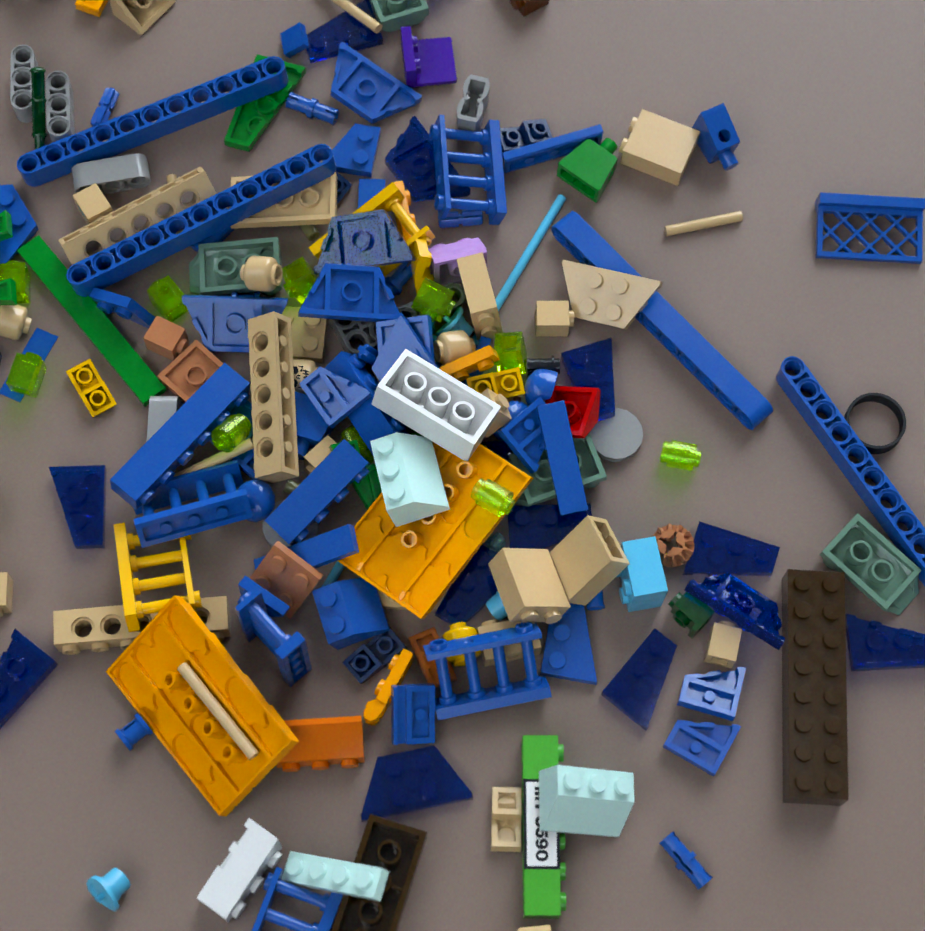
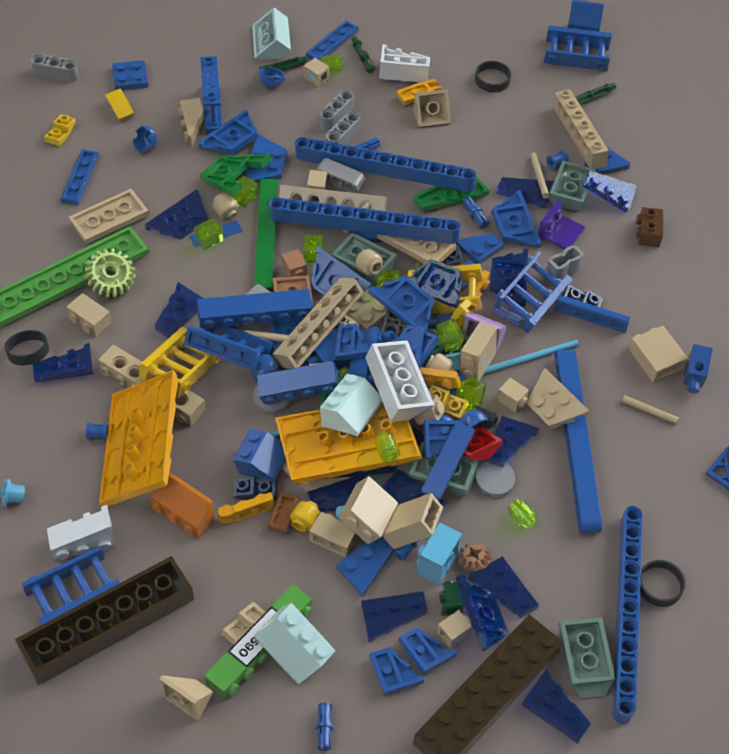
camera: 40 degrees right, 15 degrees down
(38, 106) = (333, 119): dark green piece -> none
(91, 388) = (235, 263): yellow slope -> none
(122, 306) = (285, 233): blue wing -> none
(218, 711) = (142, 443): tan bar -> none
(231, 432) = (281, 324): clear neon green brick -> none
(274, 605) = (218, 412): blue wing -> none
(286, 576) = (241, 413): nougat plate -> none
(288, 649) = (204, 430): blue fence -> none
(294, 40) = (496, 175): blue tile -> none
(325, 547) = (263, 410): blue tile -> none
(335, 876) = (124, 571): light aqua plate -> none
(412, 783) = (213, 567): clear blue wing -> none
(413, 714) = (245, 529): blue plate -> none
(505, 692) = (288, 549): blue fence -> none
(589, 167) = (606, 337): green torso -> none

